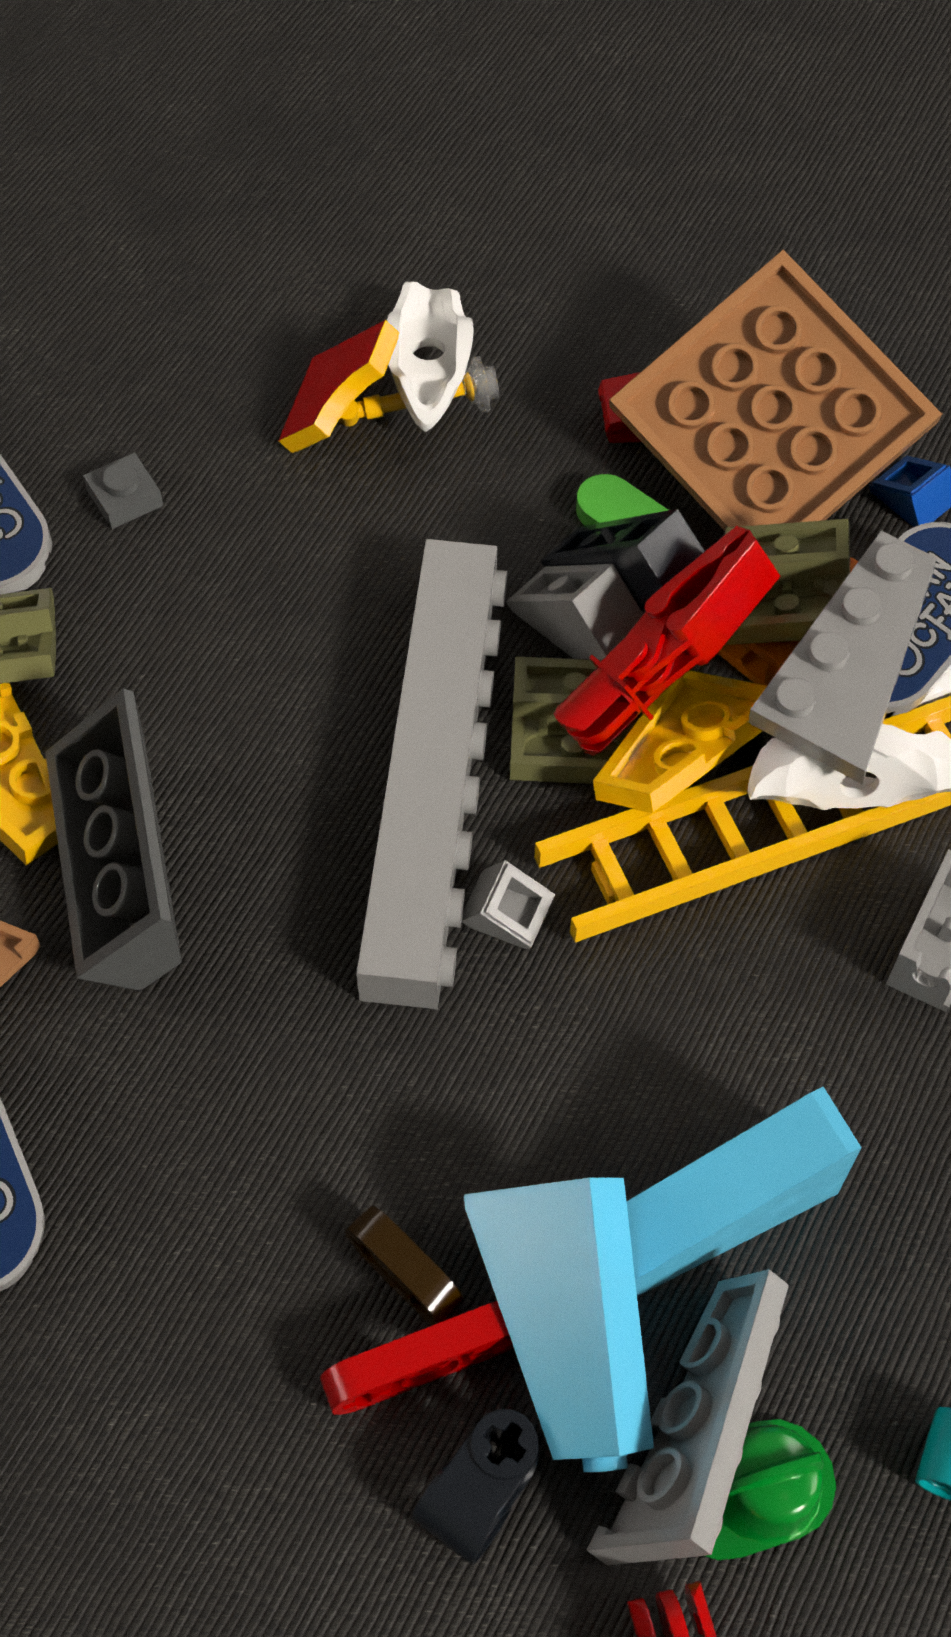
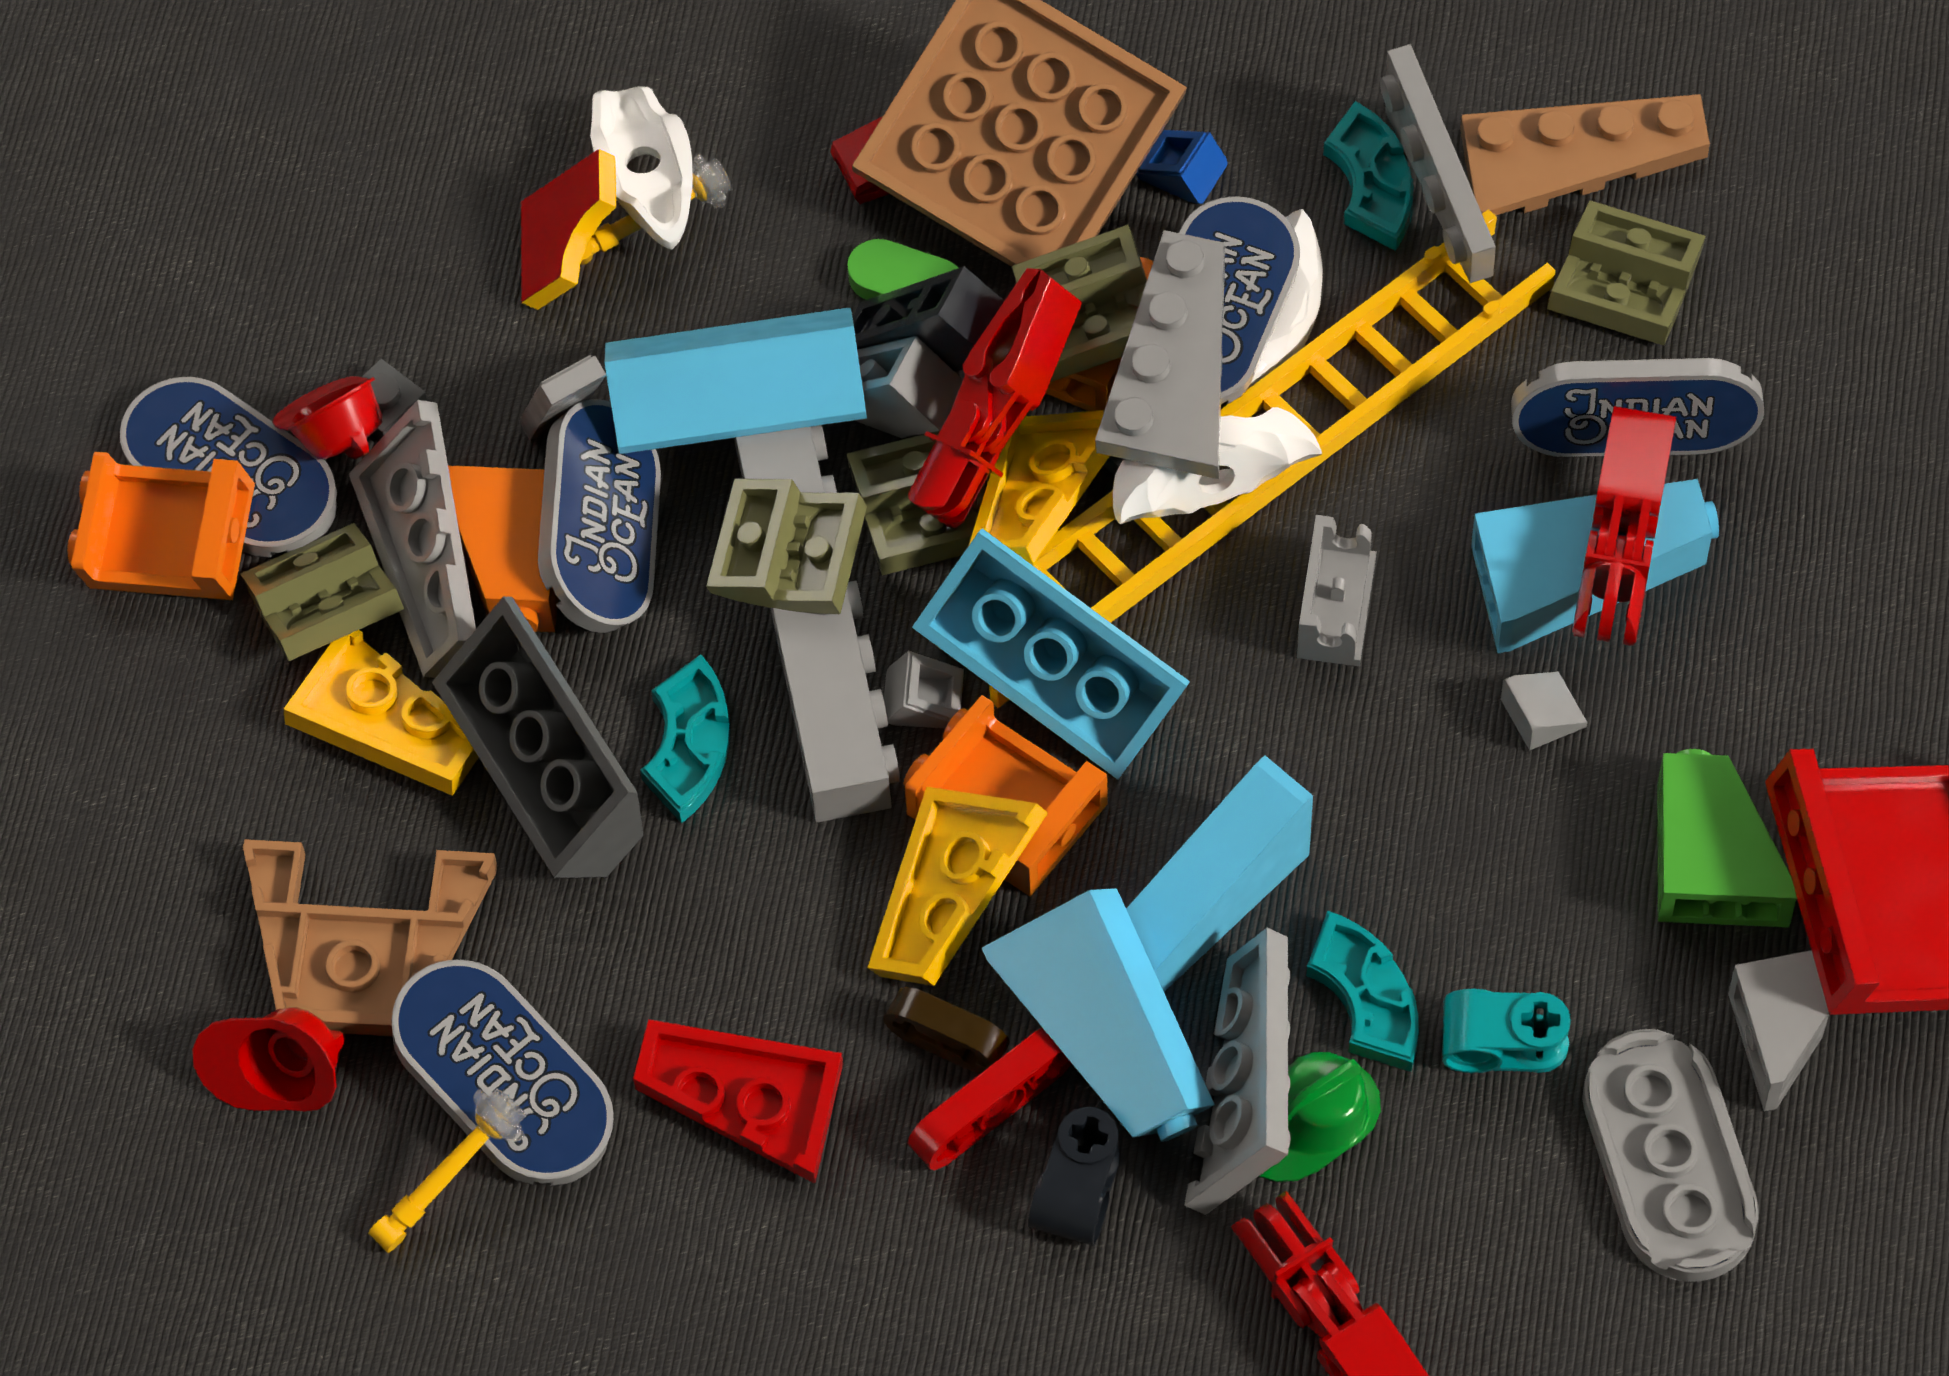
camera: 15 degrees left, 0 degrees up
(66, 491) = (334, 418): none -> red piece
(94, 609) = (417, 535): none -> light grey wing
(180, 644) = (500, 538): none -> orange slope
(181, 1261) = (745, 1088): none -> red wing
(262, 645) = (598, 520): none -> tile
(265, 523) = (561, 393): none -> light grey tile
(272, 883) = (693, 739): none -> teal tile
(421, 724) = (786, 546): none -> olive slope
(430, 557) = (734, 380): none -> medium azure slope
(460, 1105) = (947, 878): none -> yellow wing
(547, 1035) = (995, 761): none -> orange panel
(639, 908) = (1050, 654): none -> medium azure slope
(861, 1369) = (1371, 990): none -> teal tile

